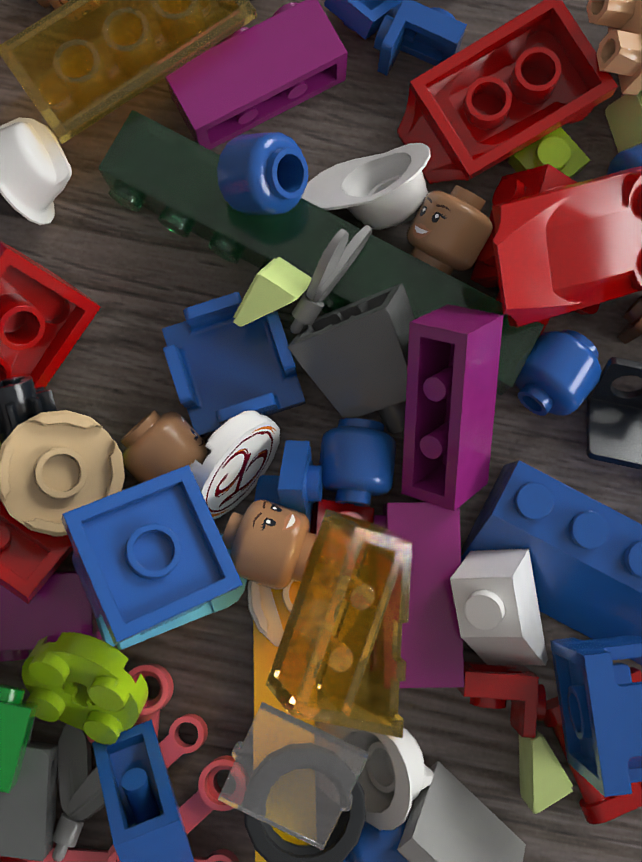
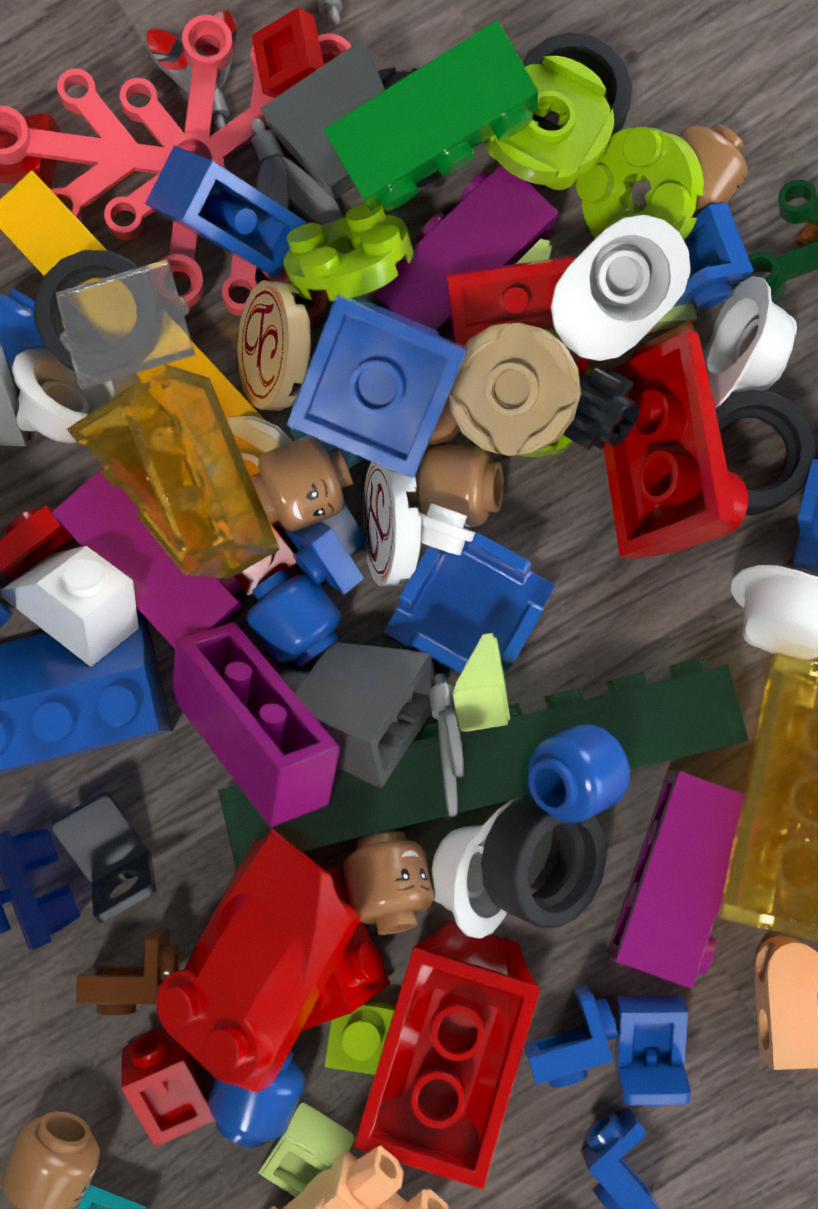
camera: 145 degrees right, 0 degrees up
(198, 668) = (273, 345): none -> tan tile
(199, 421) = (444, 529): none -> white plate
(343, 152) = (508, 860): none -> black tyre
(558, 373) = (190, 843): blue head -> none

